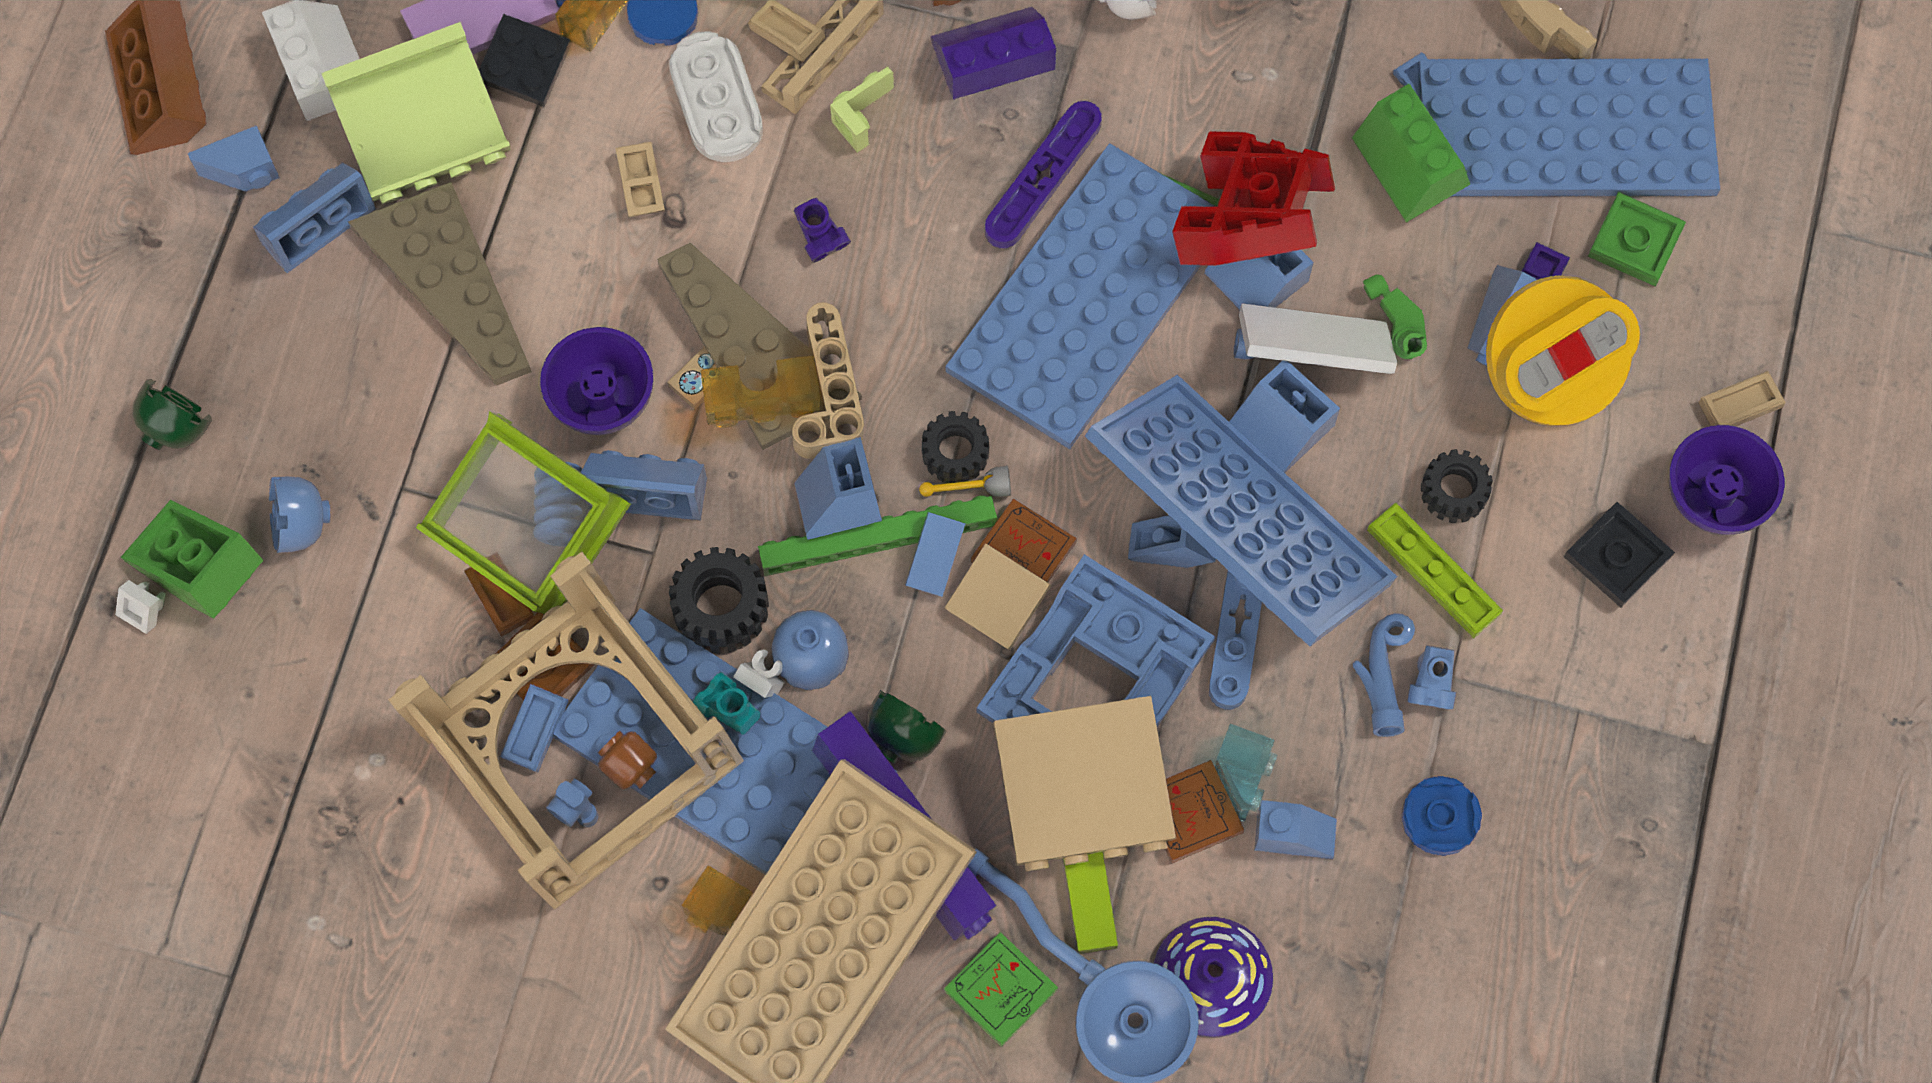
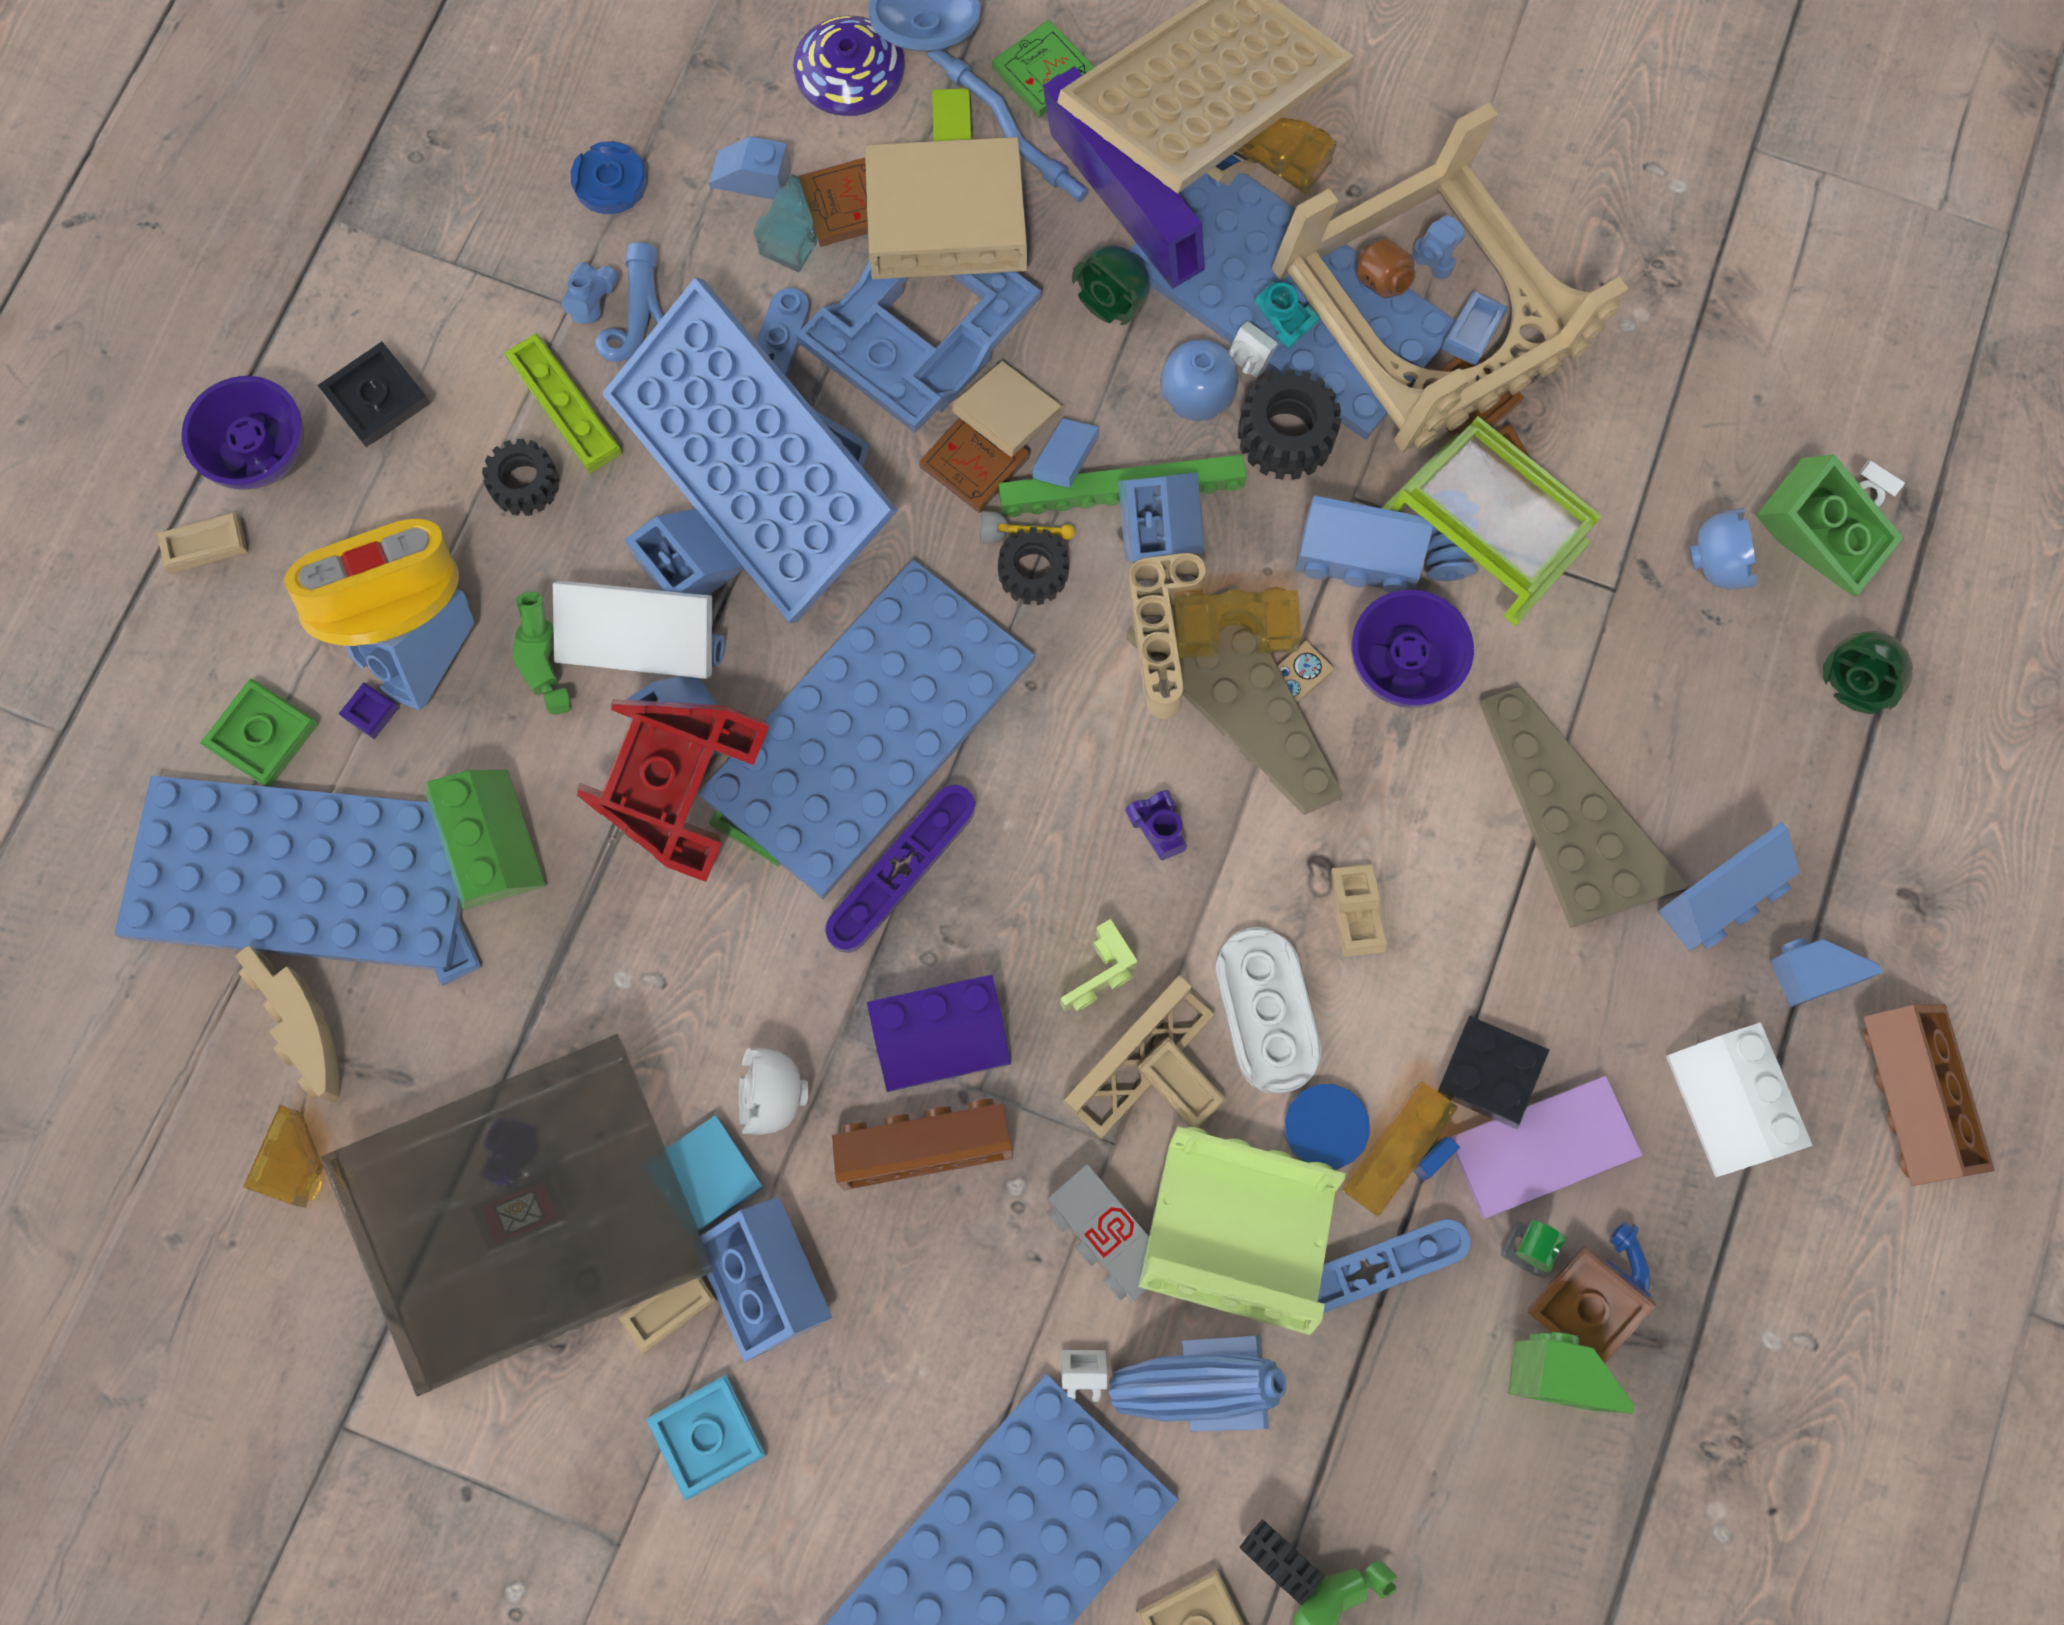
camera: 175 degrees left, 5 degrees up
(416, 113) = (1616, 997): yellowish green panel -> none

